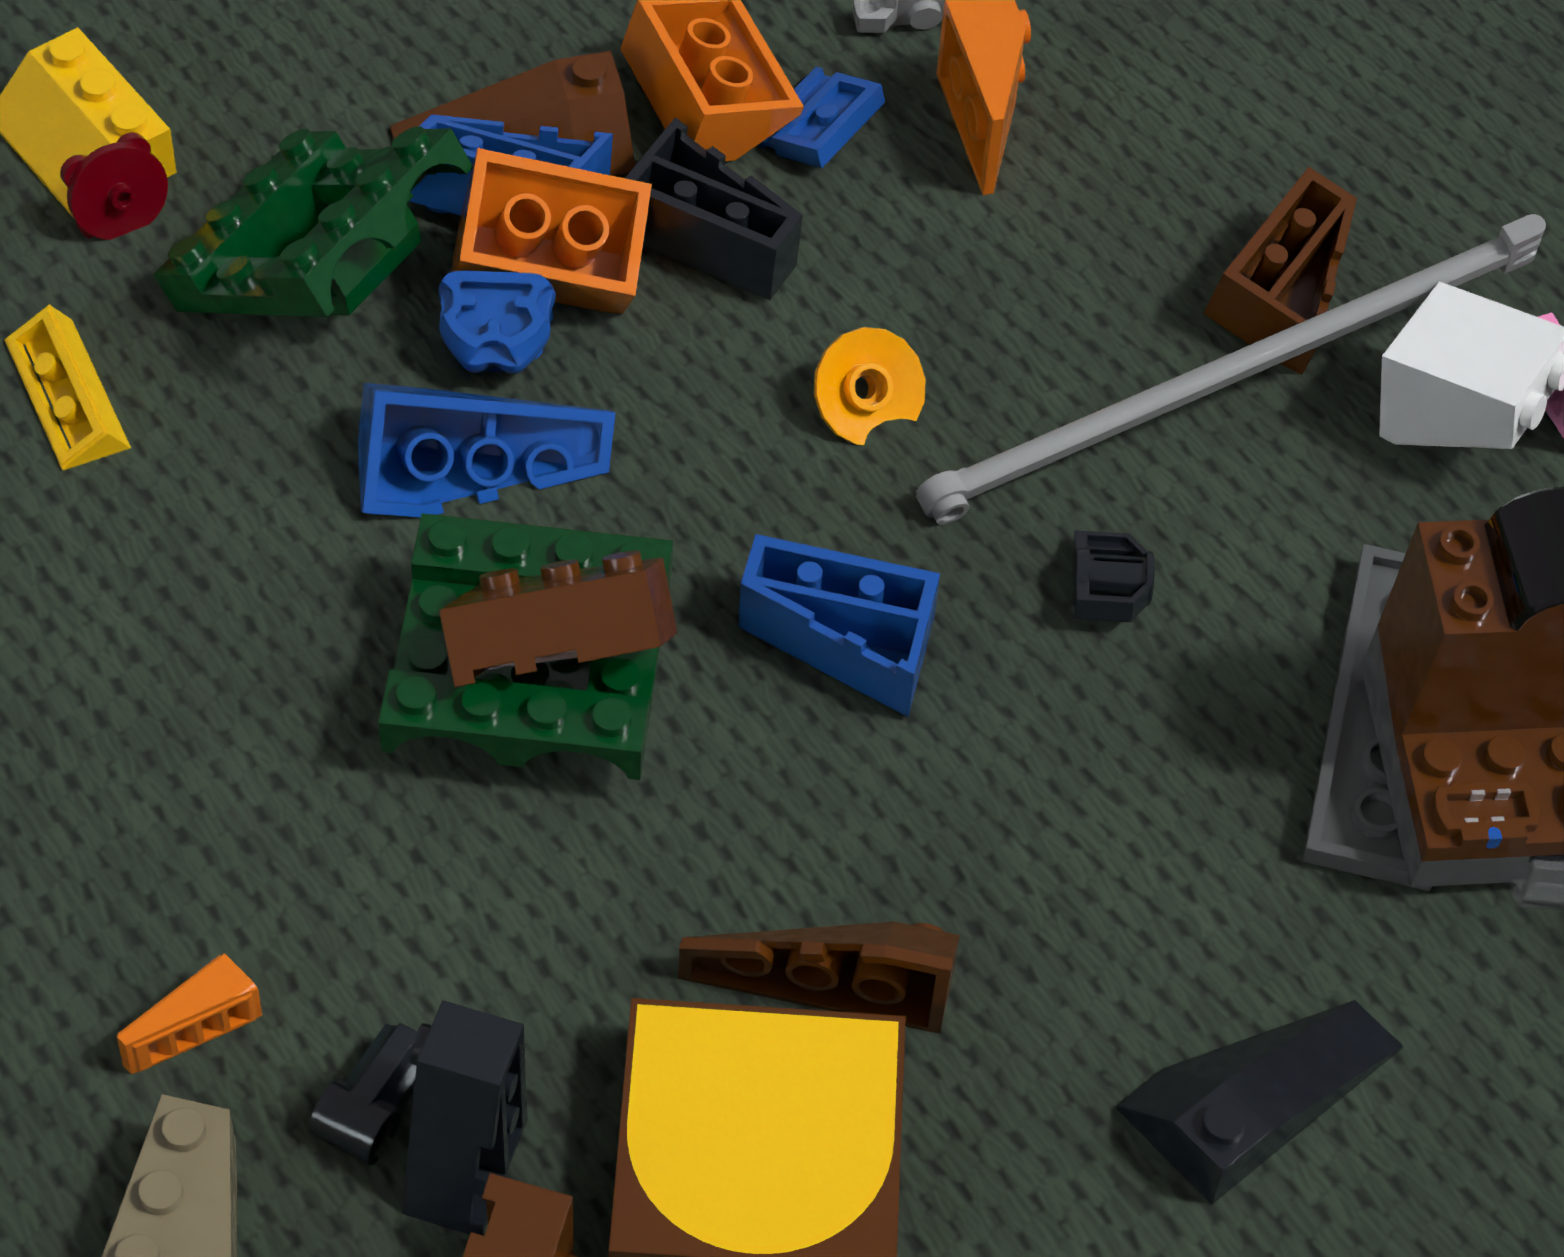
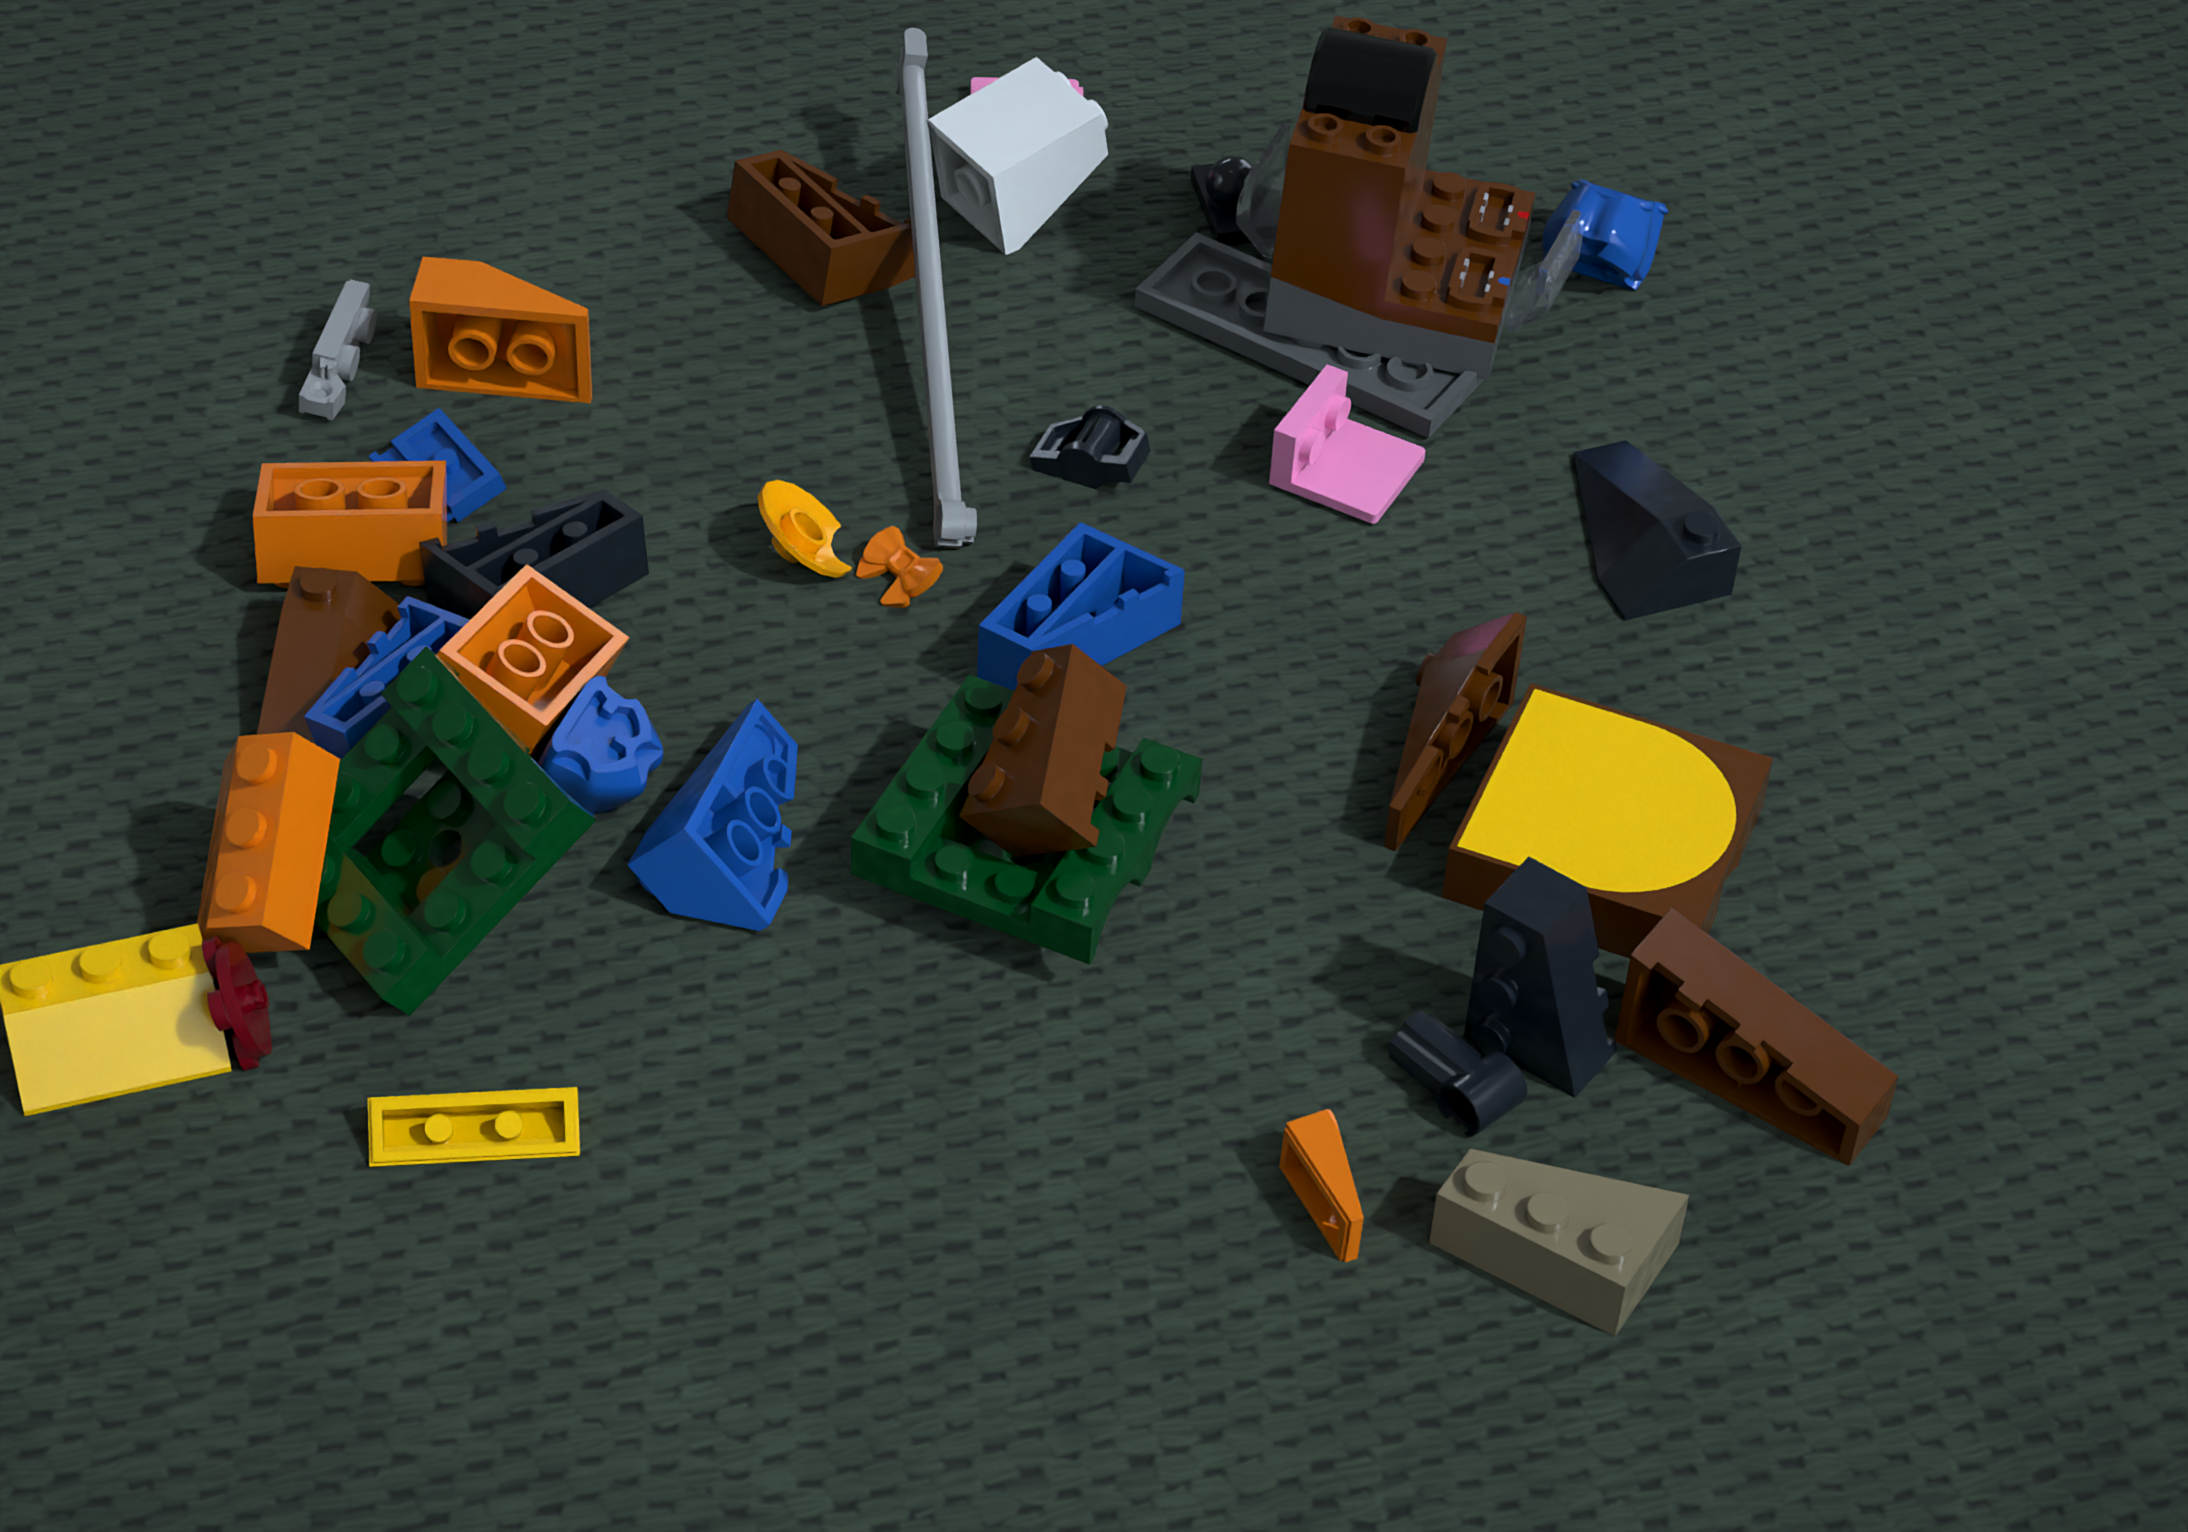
camera: 70 degrees left, 10 degrees down
(251, 130) = (268, 843): none -> orange slope
(879, 464) = (889, 553): none -> orange piece
(1214, 780) = (1337, 459): none -> bright pink bracket

